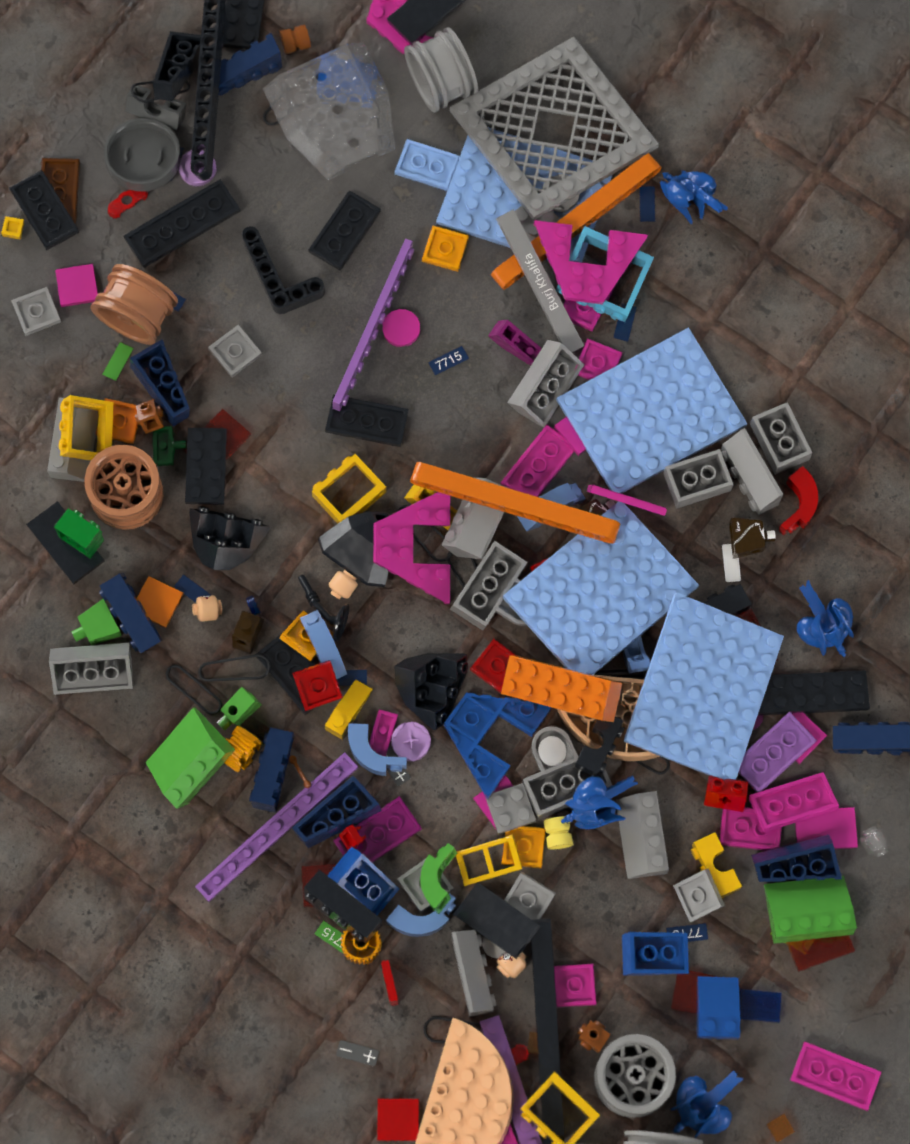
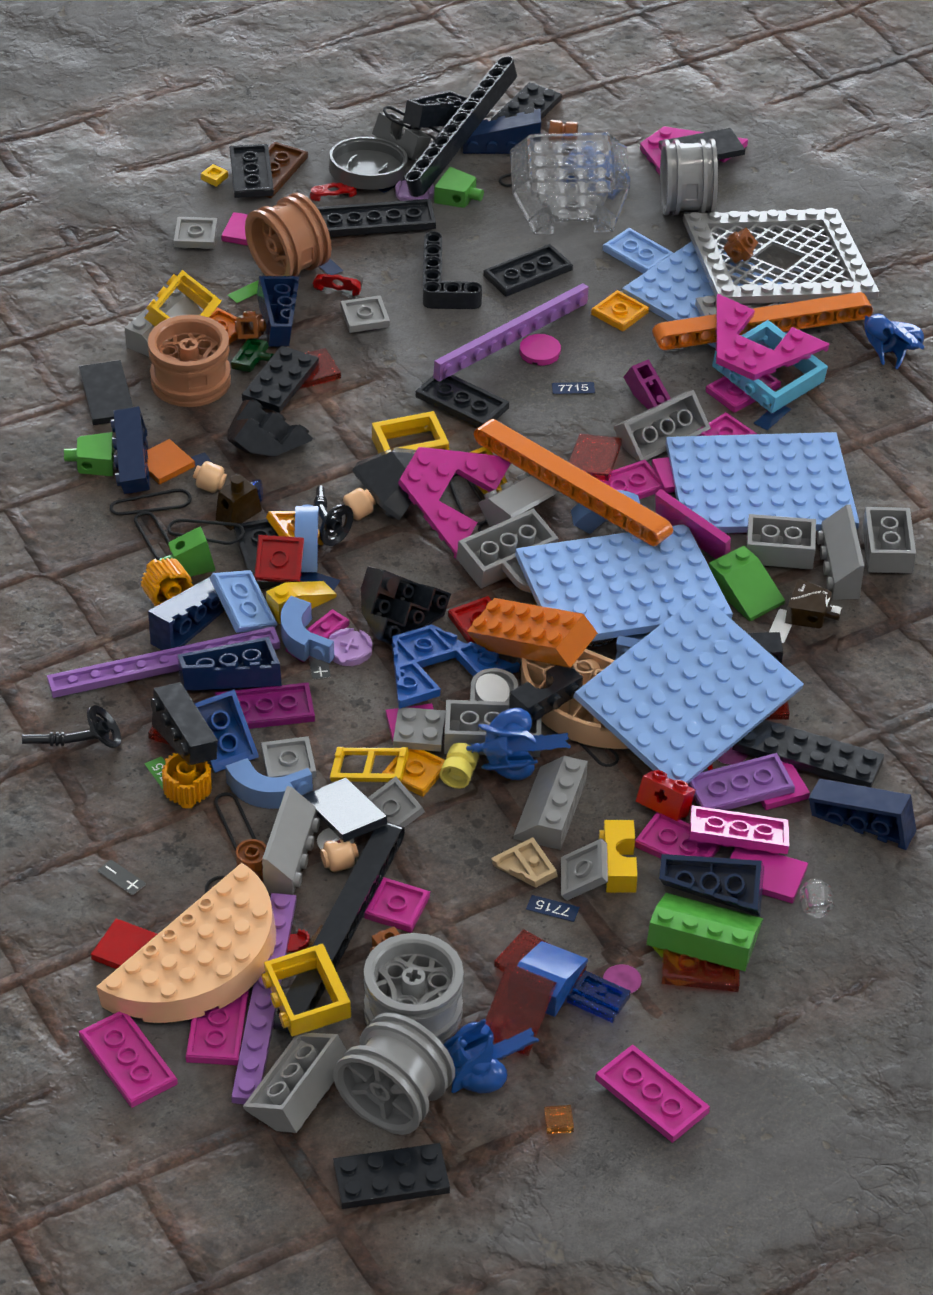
camera: 25 degrees right, 30 degrees down
(79, 533) = (123, 375): green brick -> none
(91, 668) = (64, 483): light grey slope -> none
(176, 328) = (325, 280): none -> red piece
(176, 660) = (150, 495): none -> black piece
(188, 758) = (111, 571): bright green slope -> none
(236, 154) = (456, 189): none -> bright green torso
(264, 926) = (98, 730): none -> black dish
(293, 760) = (217, 620): dark orange hinge -> none
(309, 740) = (243, 600): none -> light blue tile
(351, 837) = (236, 682): red tile -> none
(389, 983) = (194, 818): red tile -> none
(421, 955) = (224, 821): none -> black piece
(431, 877) = (301, 742): bright green arch -> none
(452, 1002) = (250, 854): none -> dark orange wheel
(505, 442) = (596, 455): none -> clear red tile
(523, 140) = (740, 245): none -> dark orange brick
(539, 281) = (698, 344): light grey tile -> none
(647, 204) = (845, 342): dark blue sticker -> none
(651, 903) = (526, 863): none -> tan wing
(655, 953) = (503, 902): blue slope -> none
(689, 535) = (746, 583): none -> bright green slope
(714, 1053) = (519, 1004): none -> clear red tile
(766, 977) = (624, 976): none -> flat silver sticker
(806, 490) = (887, 605): red arch -> none
(827, 626) = (857, 703): blue hair -> none

